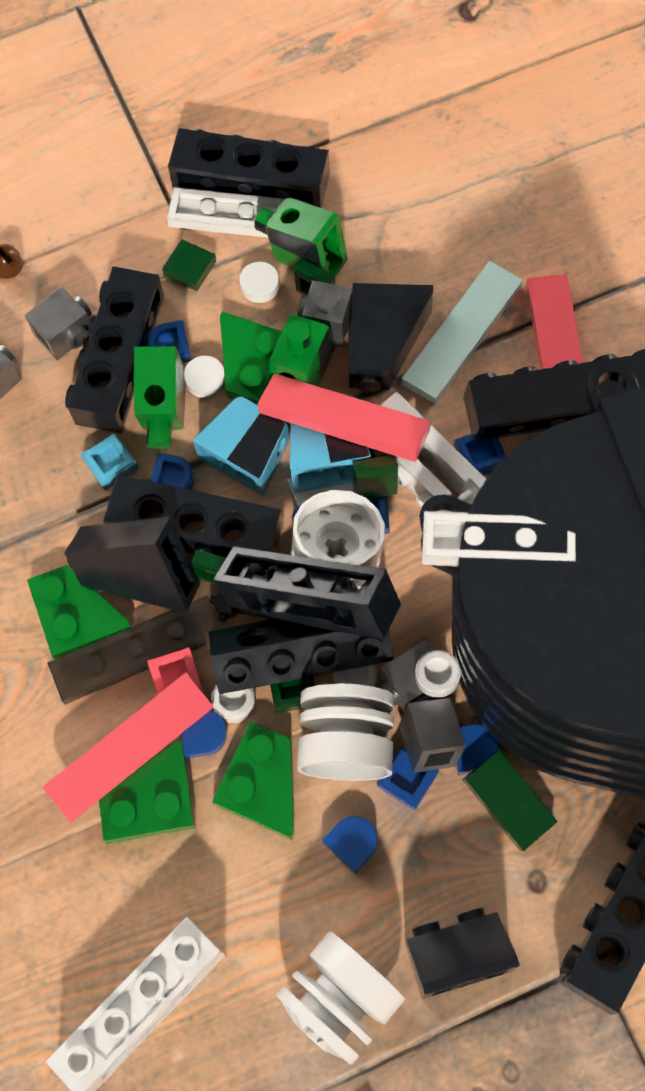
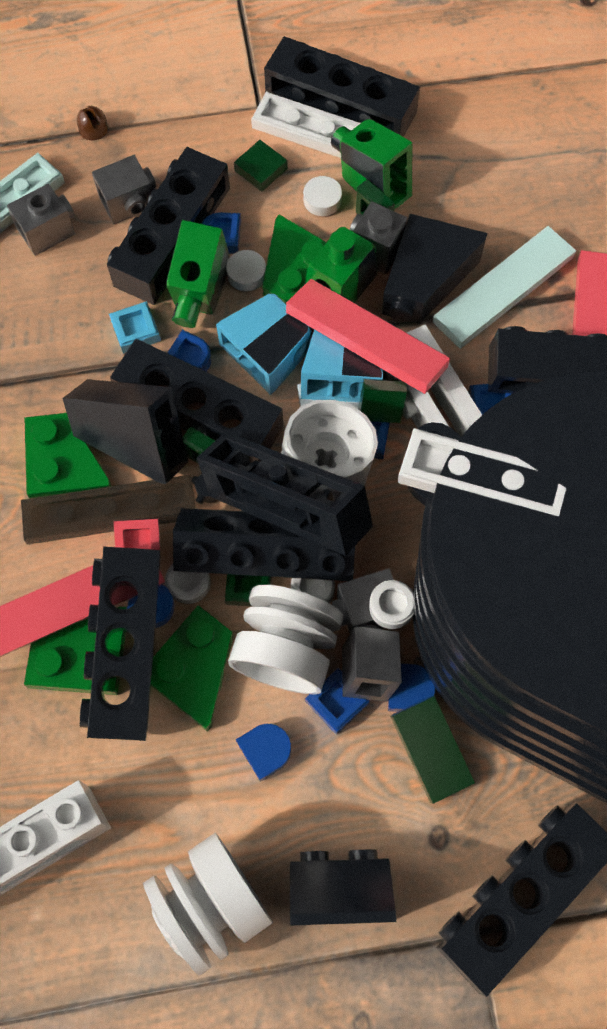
camera: 10 degrees right, 0 degrees up
(191, 703) = (141, 571): none -> black brick

